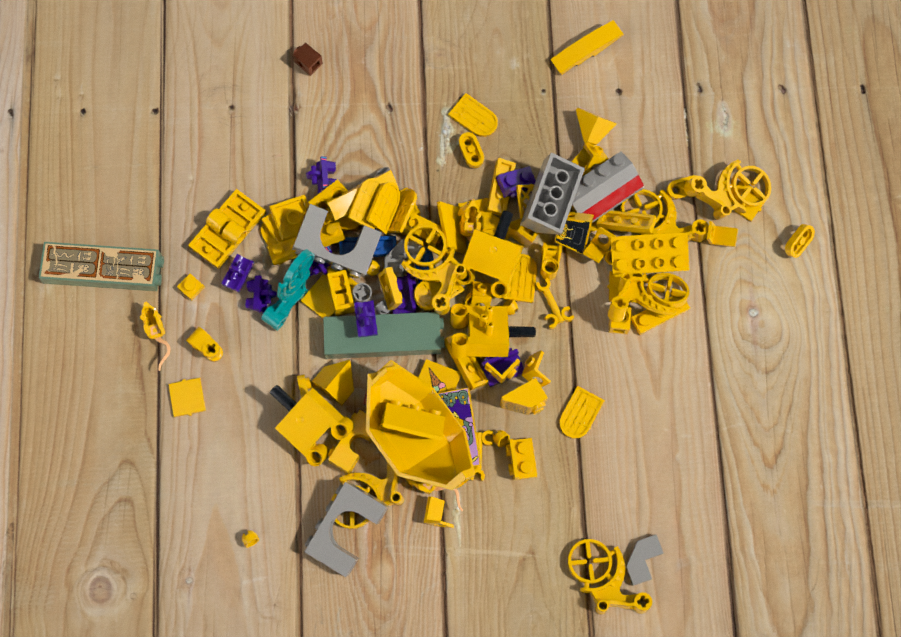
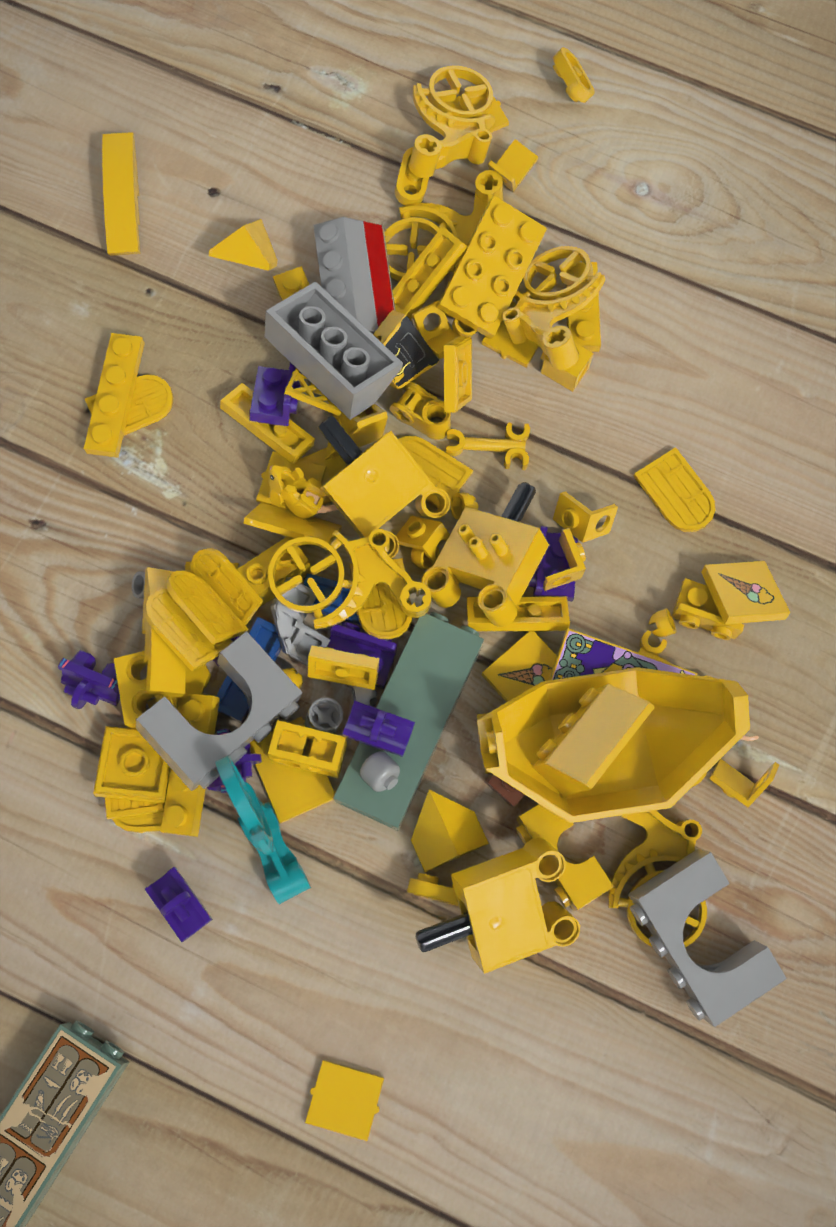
camera: 60 degrees left, 0 degrees up
(154, 327) = (194, 1100): yellow animal -> none
(190, 287) = (155, 998): yellow plate -> none
(204, 343) = (265, 1024): yellow piece -> none
(226, 228) = (89, 885): yellow plate -> none
(250, 539) = (645, 1112): yellow hinge -> none
(262, 294) = (236, 880): dark purple hips -> none
(346, 331) = (380, 771): none -> light grey piece
(471, 151) = (184, 435): yellow plate -> none
(475, 105) = (114, 395): none -> yellow plate
(525, 399) = (625, 549): yellow slope -> none
(538, 470) = (745, 592): none -> yellow tile
(575, 265) = (457, 373): none -> yellow tile
(597, 156) = (294, 261): yellow bracket -> none

